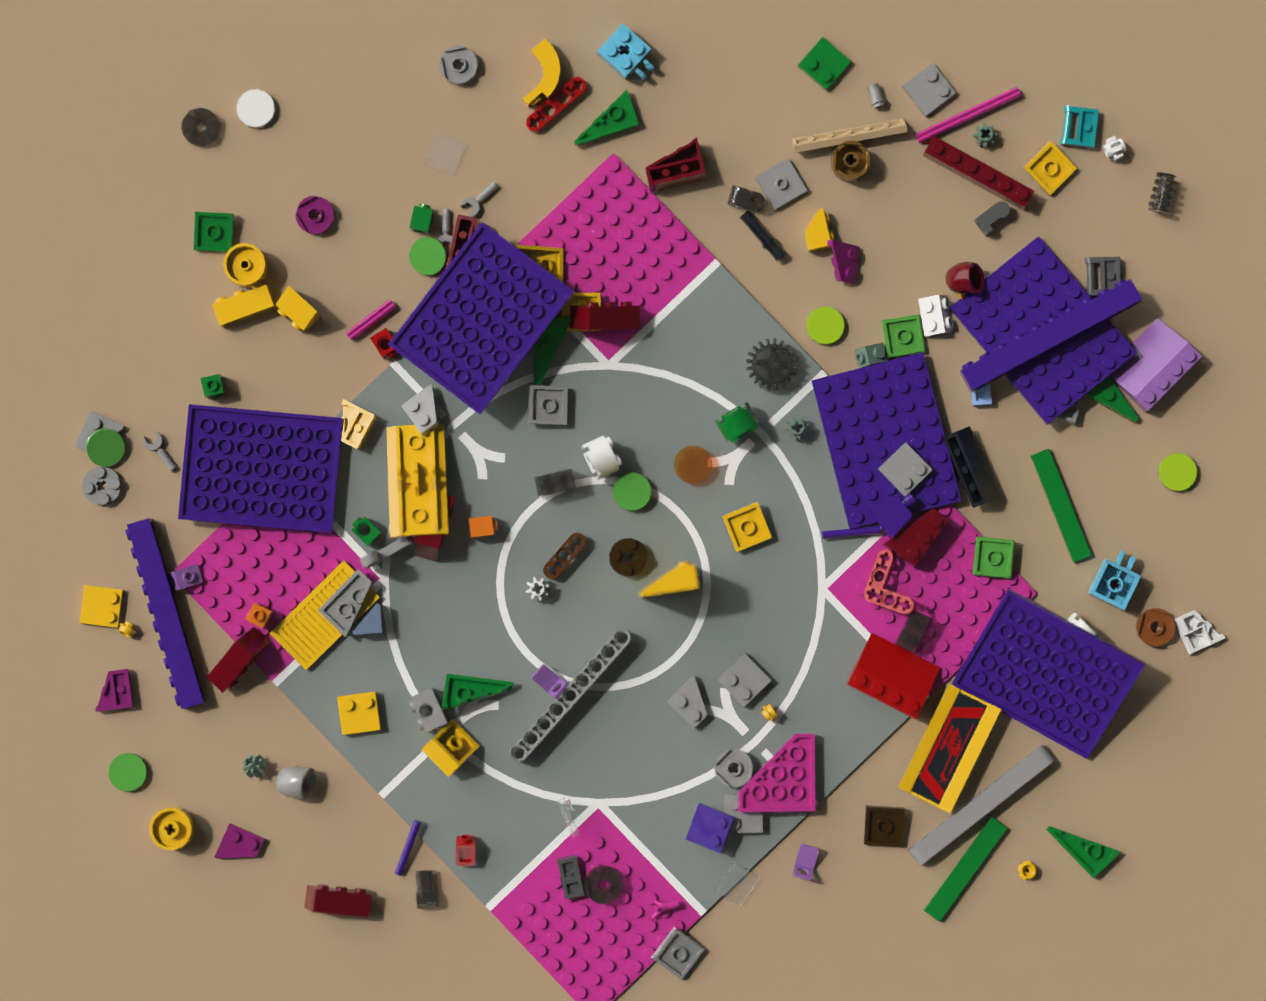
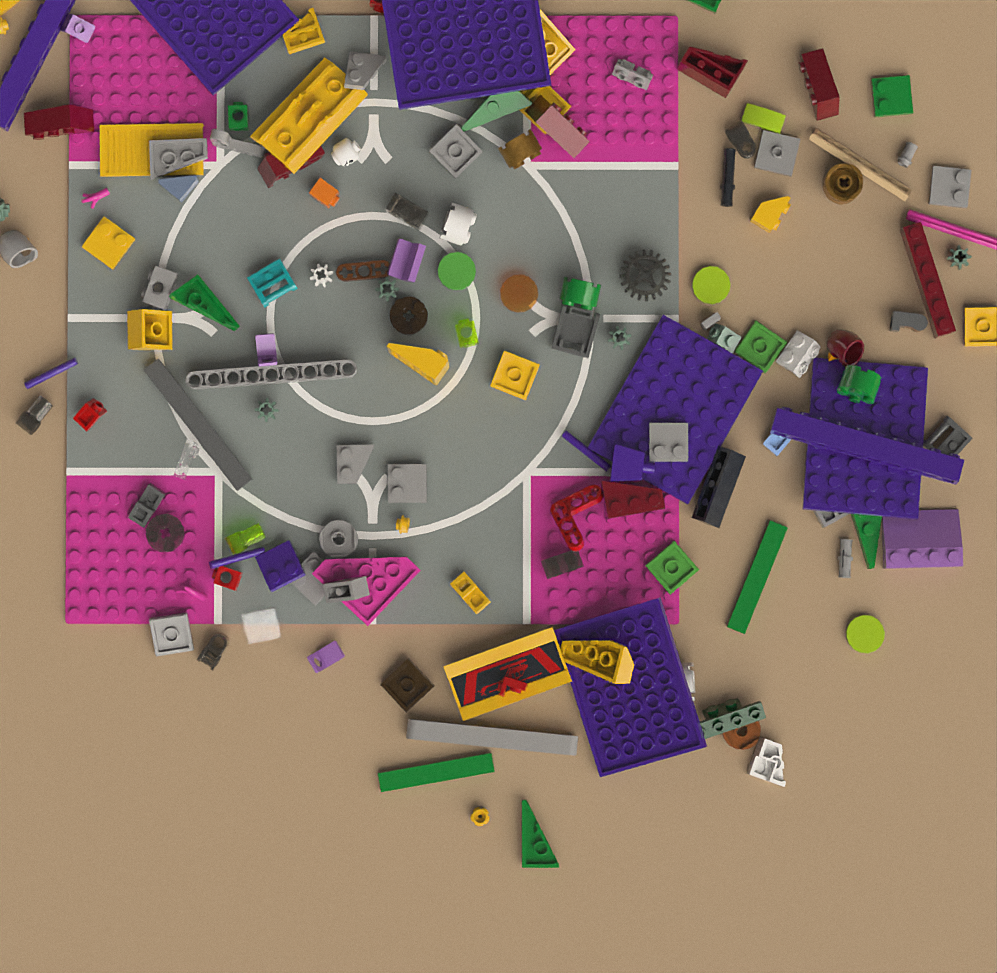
camera: 40 degrees right, 0 degrees up
(259, 615) = (104, 104): orange brick -> none
(317, 689) = (94, 197): none -> dark pink bar
(469, 482) = (345, 152): none -> white head
(500, 625) = (267, 278): none -> teal plate
(551, 782) = (198, 424): none -> dark grey tile
(588, 518) = (406, 260): none -> medium lavender panel
(591, 549) = (387, 284): none -> sand green gear
(591, 730) = (263, 406): none -> sand green gear
(594, 359) = (520, 149): none -> pearl gold brick
(630, 224) = (624, 71): none -> light grey hinge
(664, 836) = (242, 540): none -> clear neon green piece
(673, 852) = (236, 557): none -> dark purple bar
(687, 538) = (470, 341): none -> clear neon green brick
(688, 873) = (235, 577): none -> red brick
(720, 938) = (213, 652): none -> clear smoke piece
(747, 168) = (764, 118): none -> lime slope
(757, 450) = (575, 328): none -> dark grey container
(764, 104) = (820, 84): none -> dark red wedge
(775, 799) = (346, 589): none -> light grey slope
(844, 261) = (769, 251): magenta wing -> none
(850, 352) = (710, 321): none -> light grey tile
(865, 715) = (470, 592): none -> yellow slope
(893, 676) = (517, 583): red slope -> none
(964, 751) = (515, 686): none -> red bracket
(1003, 296) = (859, 384): none -> green brick
(1007, 673) = (600, 658): none -> yellow wedge
(1111, 431) = (845, 558): none -> light grey pin
(1125, 579) = (753, 672): medium azure hinge -> none
(1138, 625) = (730, 716): none -> bracket

